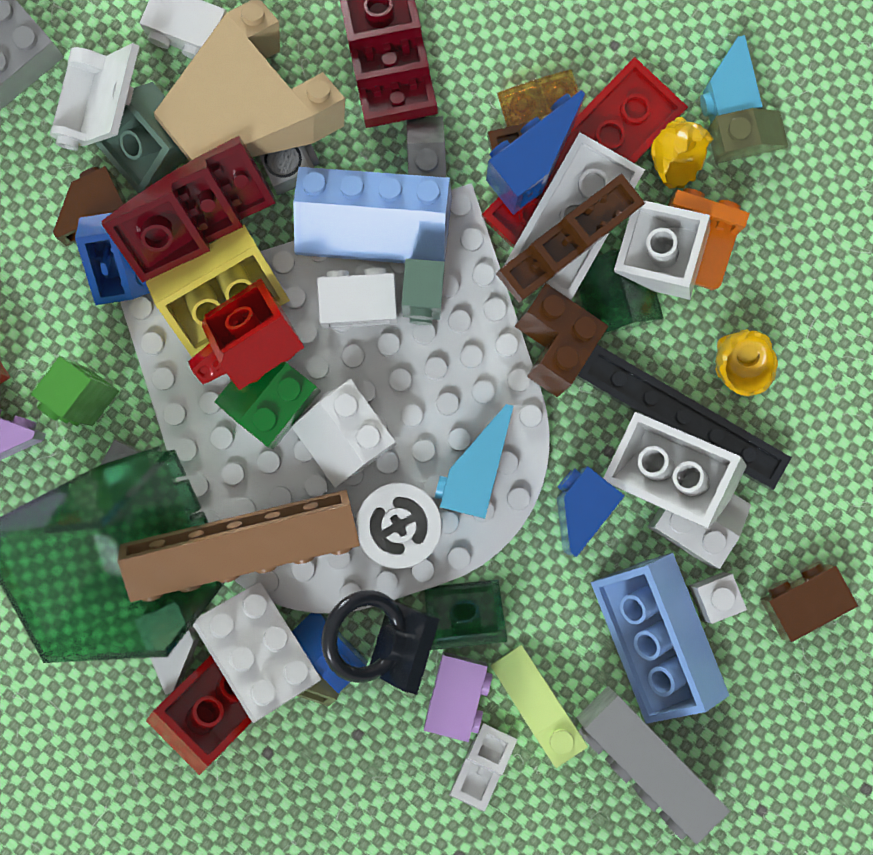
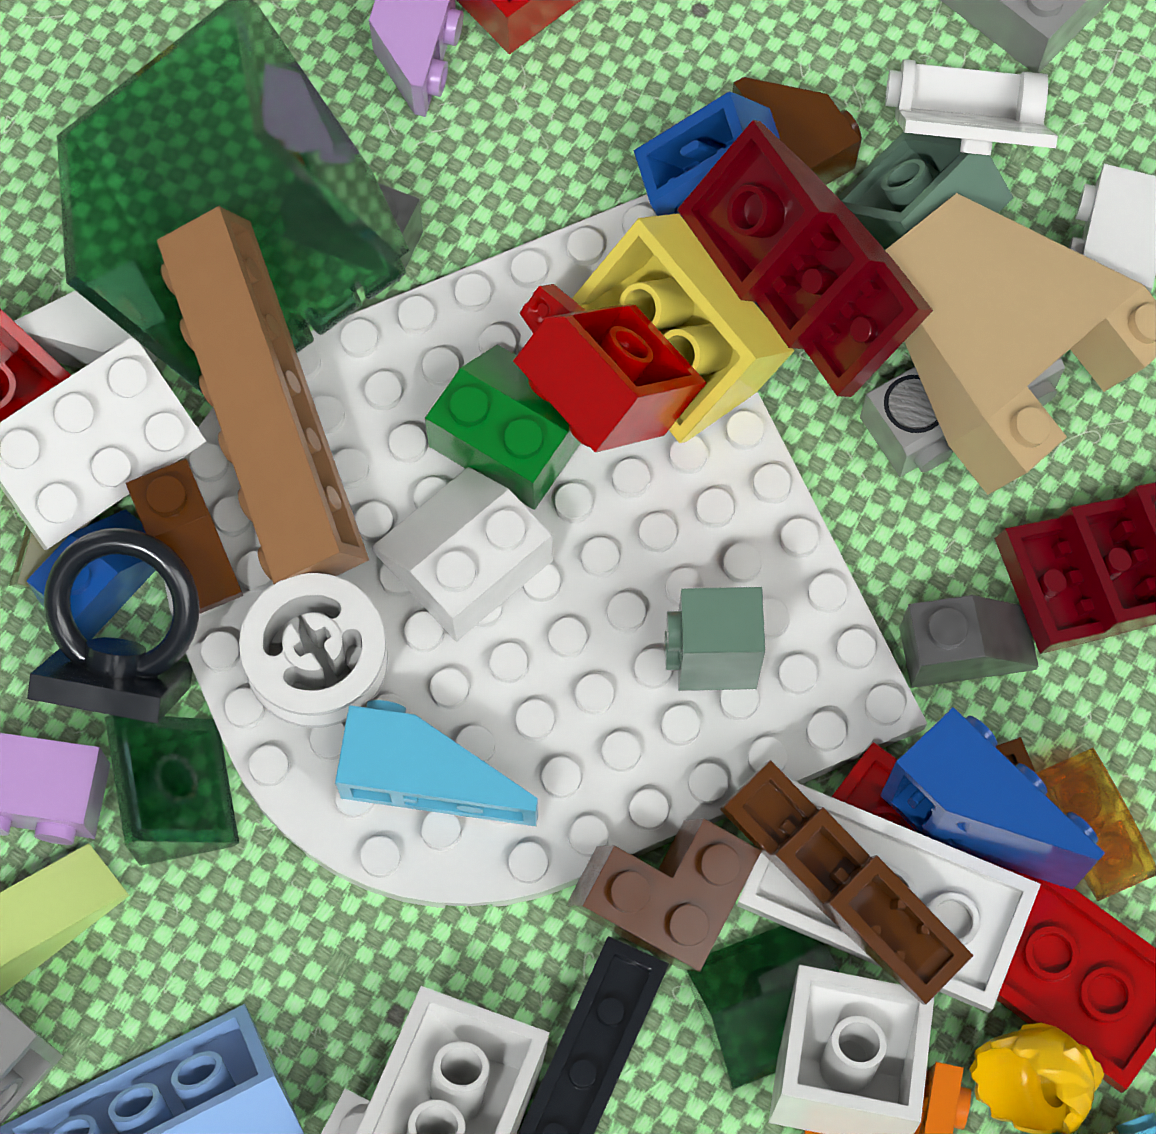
camera: 85 degrees right, 15 degrees down
(73, 393) = (486, 127): bright green brick -> none
(318, 597) = (178, 516): none -> reddish brown slope
(357, 299) = (691, 535): white brick -> none
(371, 215) = (838, 555): light blue slope -> none
(584, 507) = (369, 958): blue slope -> none

